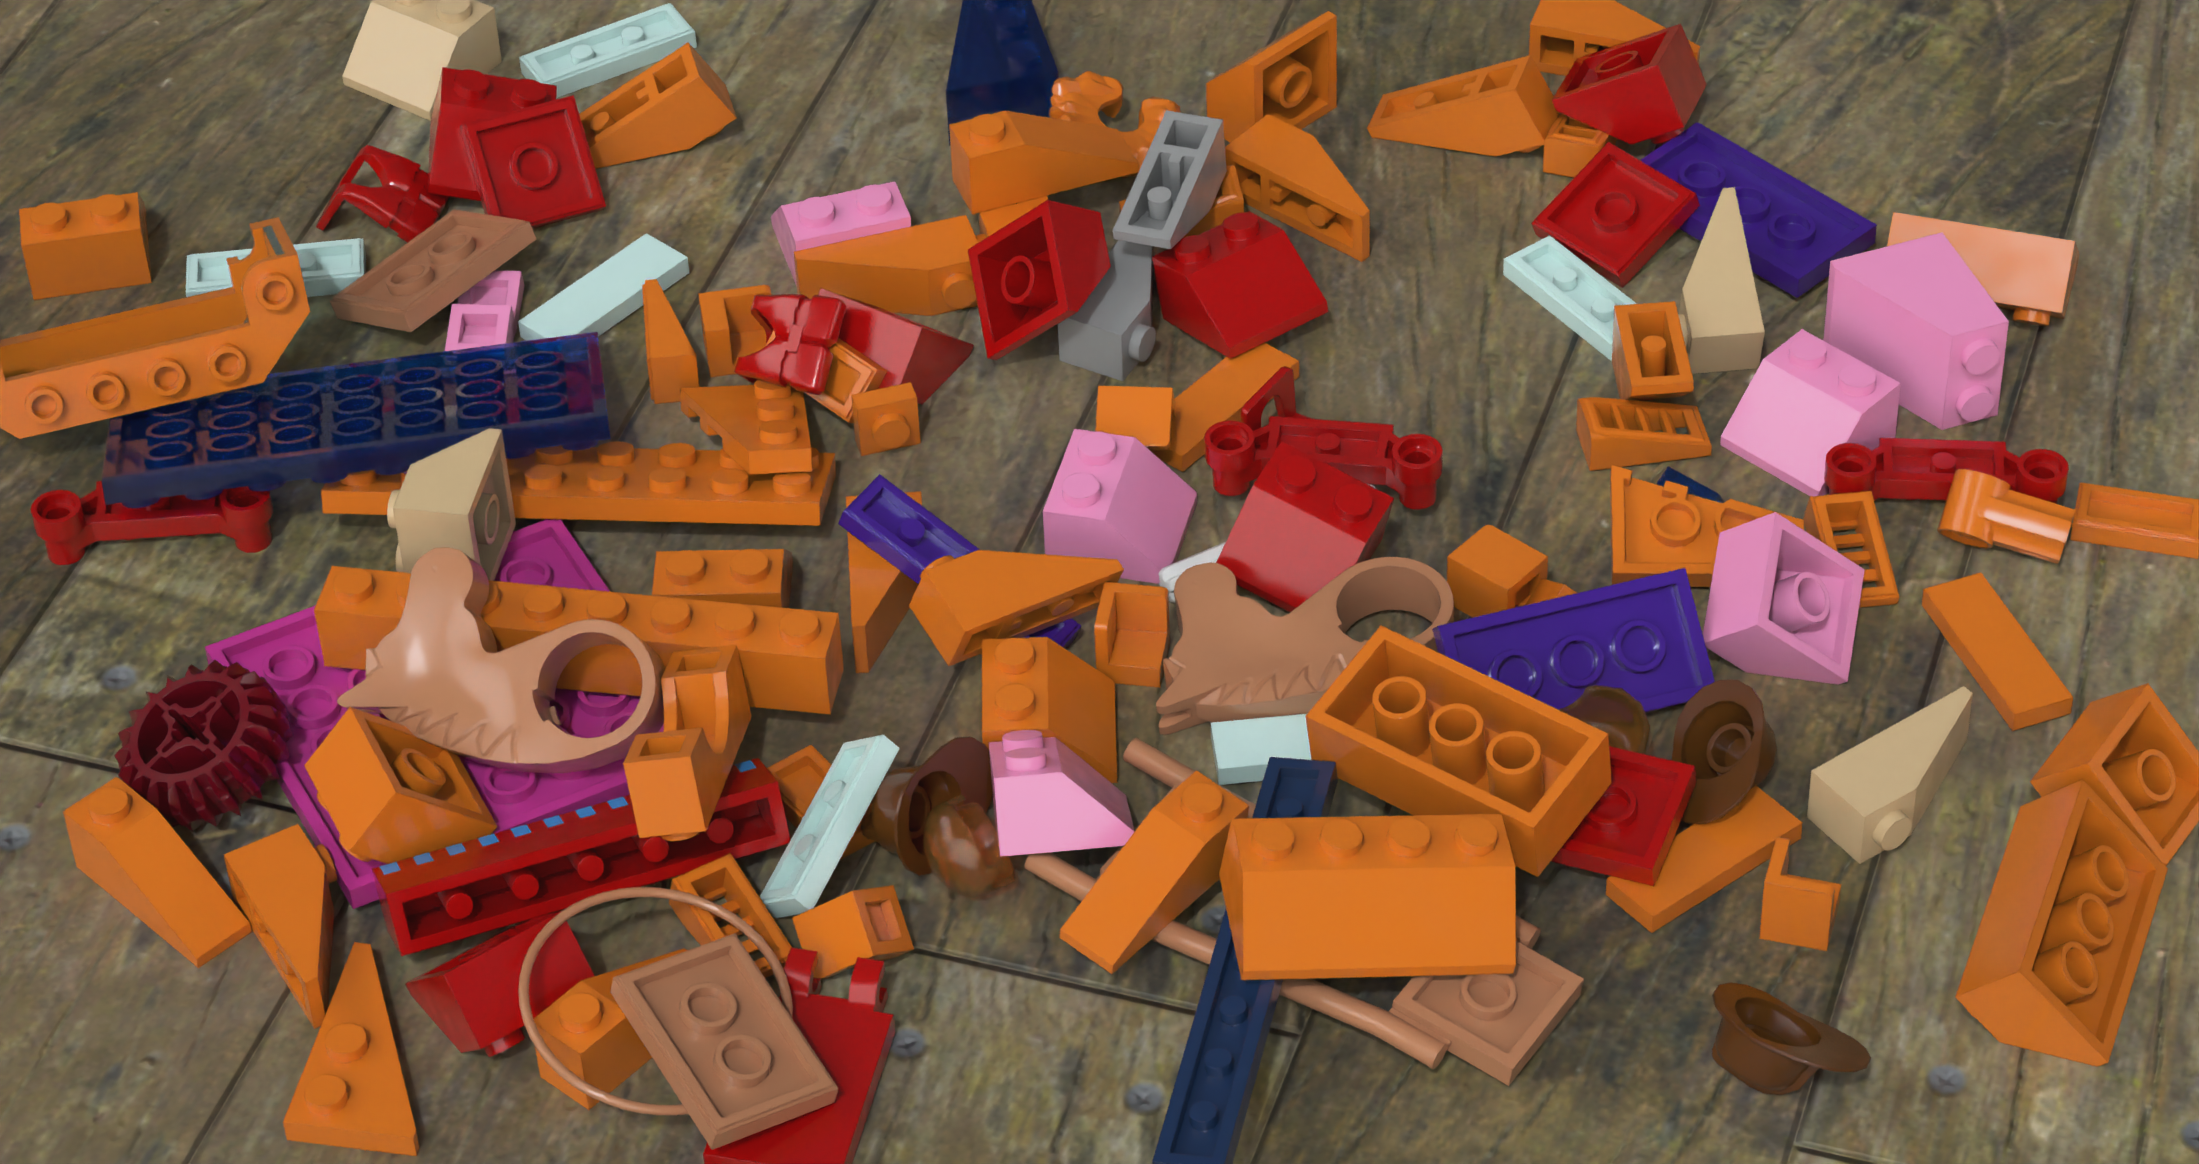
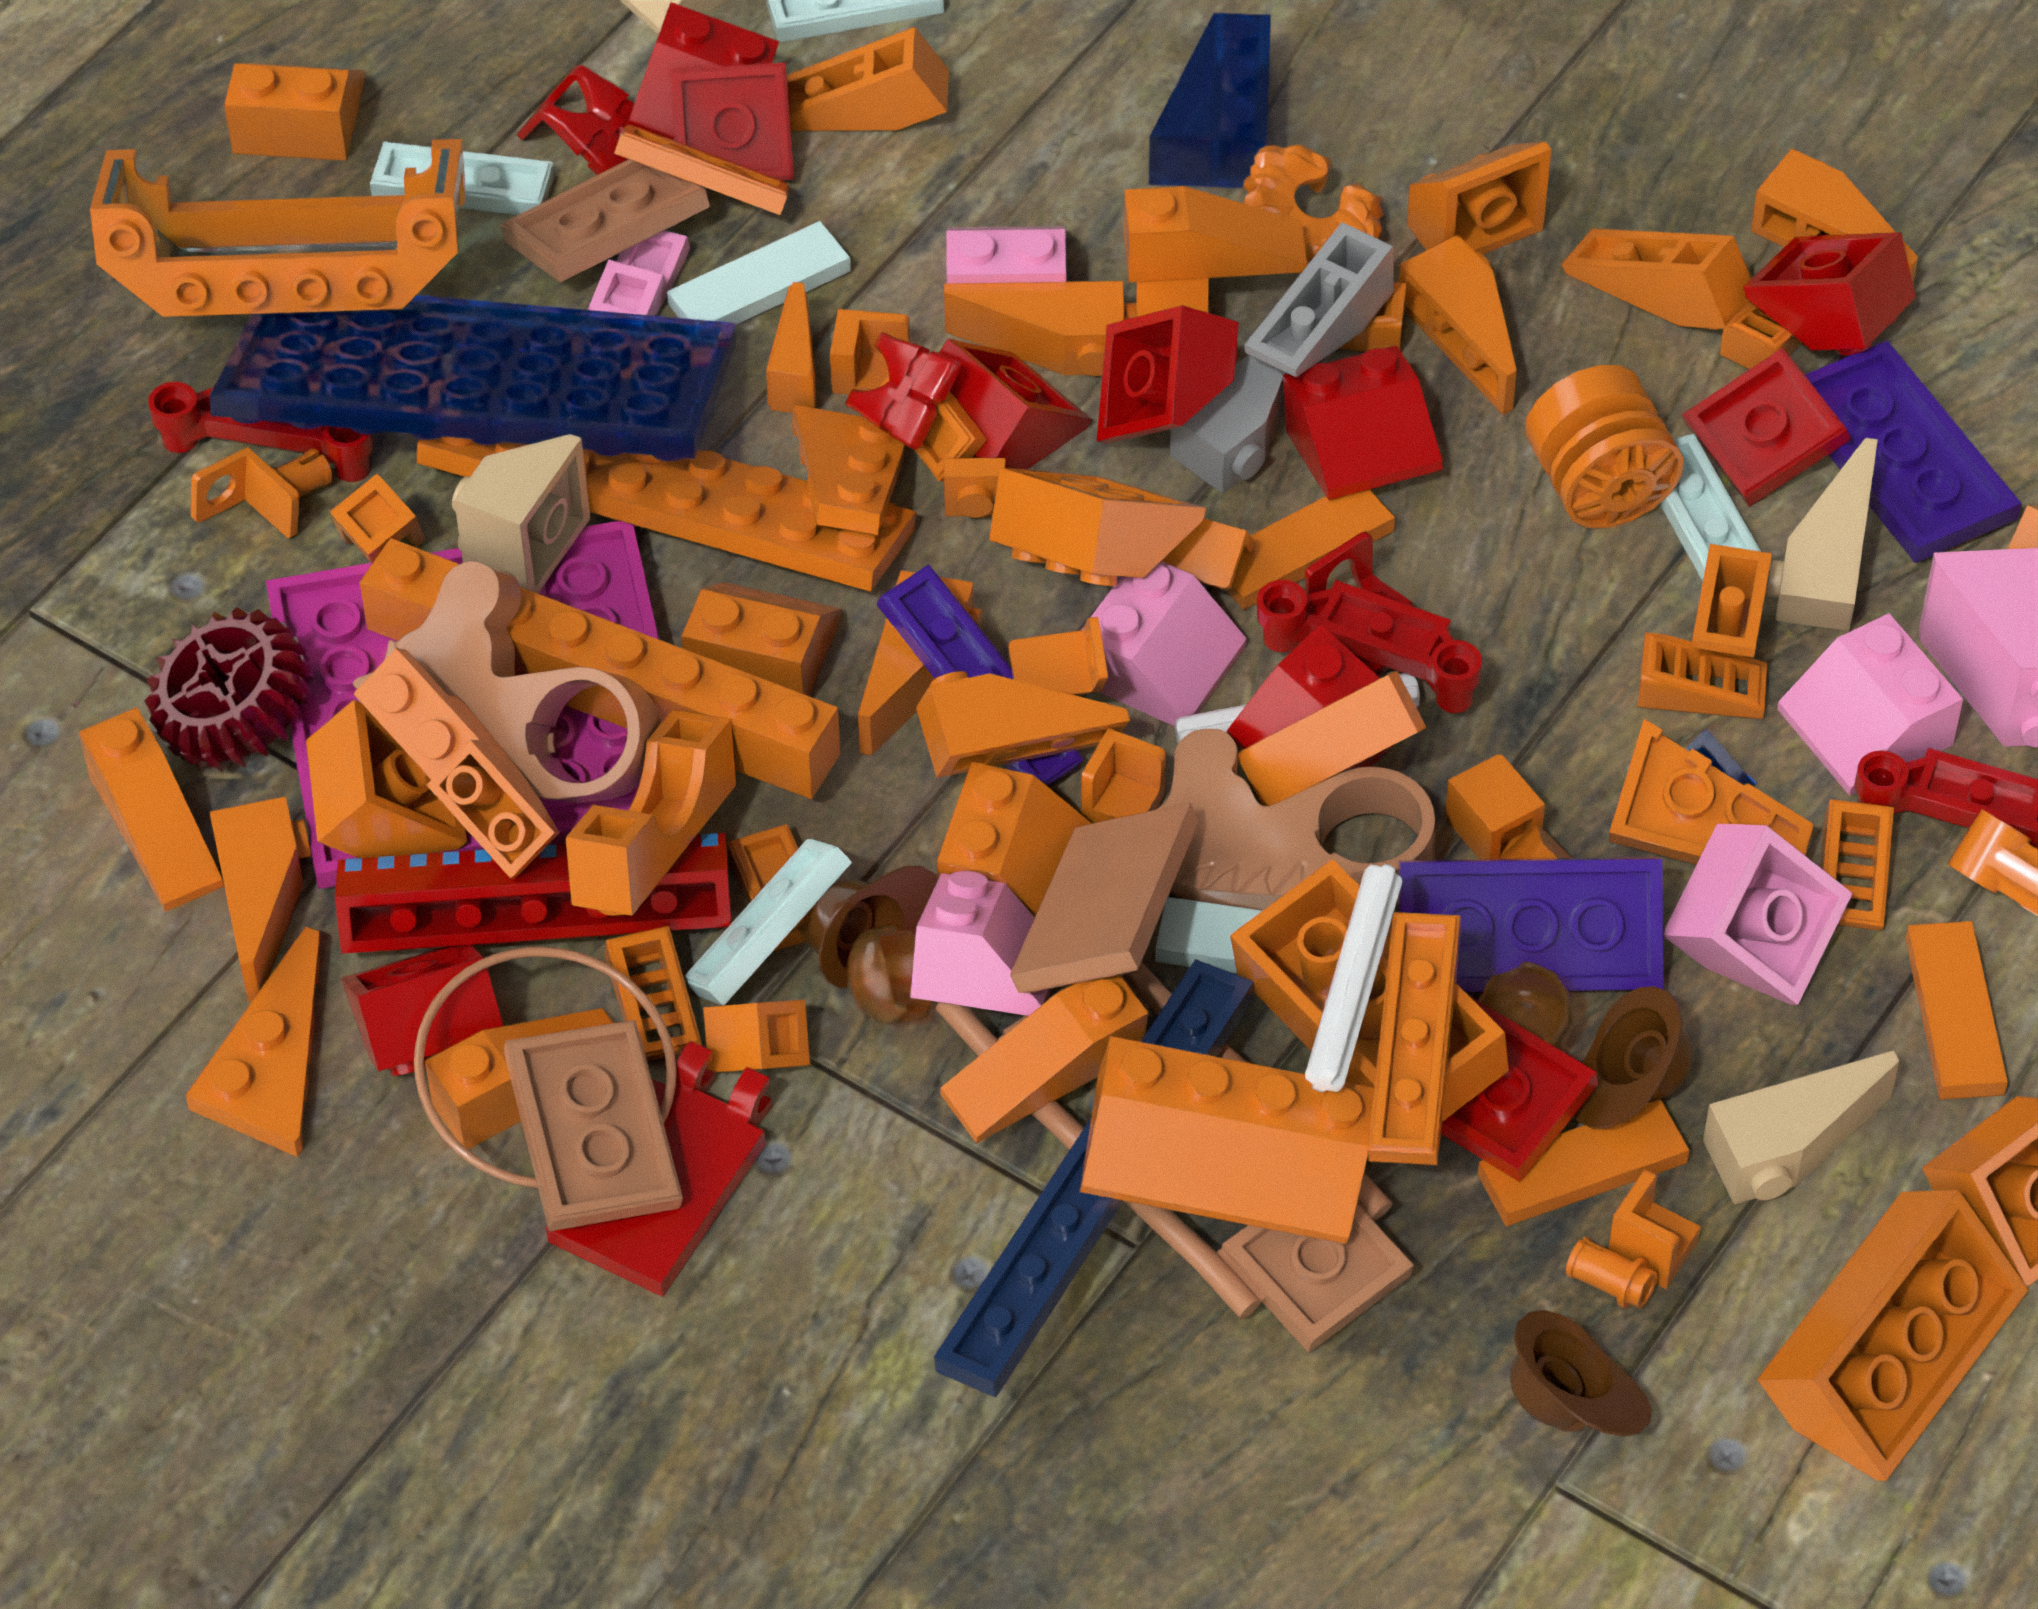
camera: 15 degrees right, 10 degrees up
(170, 569) = (268, 490): none -> orange bracket
(297, 566) = (375, 516): none -> orange panel
(475, 740) = (461, 759): none -> orange slope
(519, 207) = (702, 169): none -> orange tile
(1014, 415) = (1088, 523): none -> orange slope
(1044, 527) = (1062, 661): none -> orange bracket
(1164, 722) = (1105, 899): none -> nougat tile
(1328, 539) = (1331, 740): none -> orange tile
(1447, 717) = (1353, 978): none -> white axle
(1477, 253) = (1603, 446): none -> orange wheel
(1525, 759) = (1414, 1039): none -> orange tile
(1774, 944) = (1612, 1273): none -> orange pin

